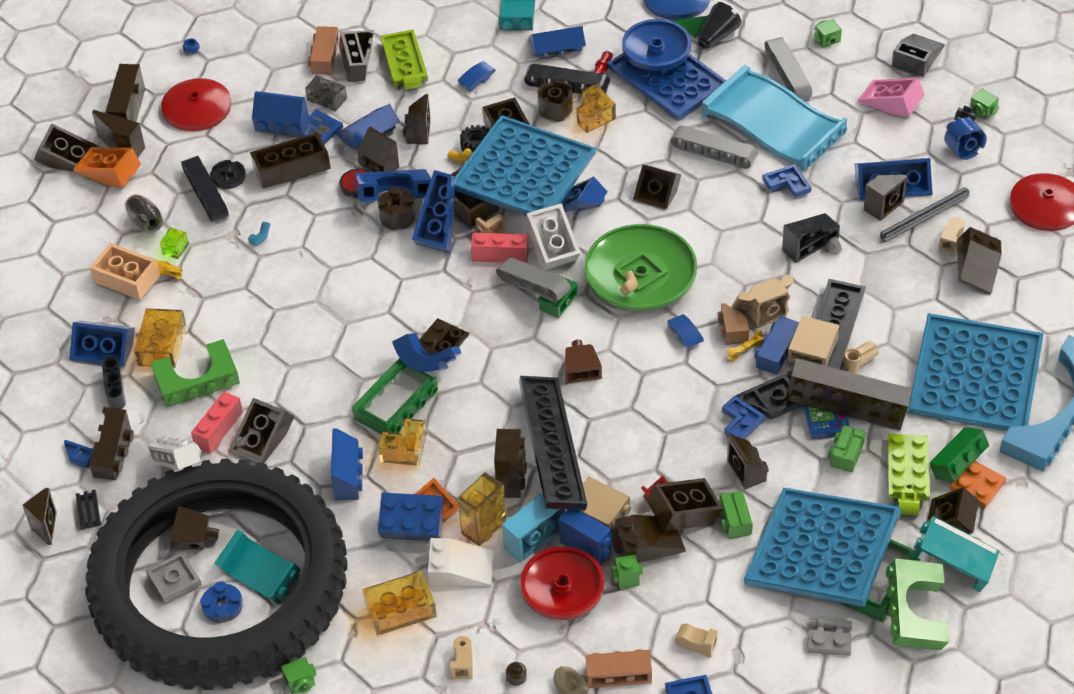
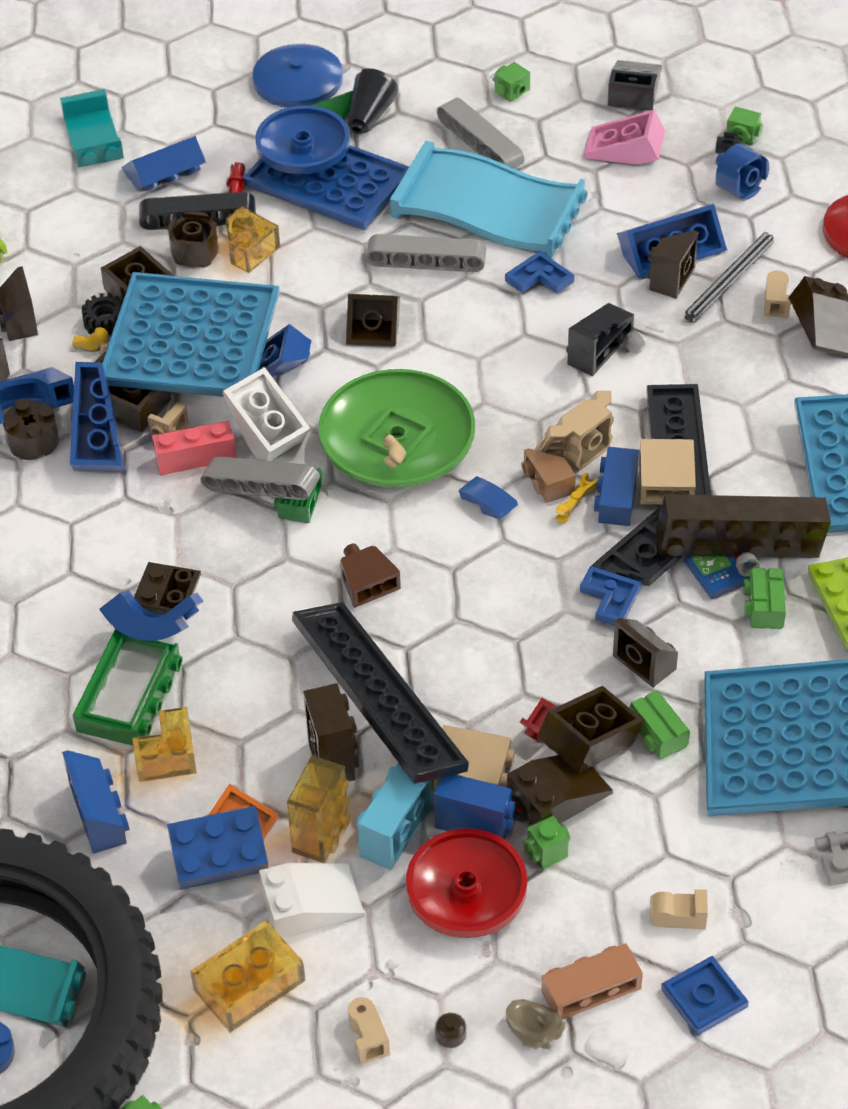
camera: 20 degrees left, 0 degrees up
(480, 72) = (70, 230): blue slope -> none
(840, 420) = (743, 567): none -> light grey hinge
(857, 357) = (728, 475): tan piece -> none

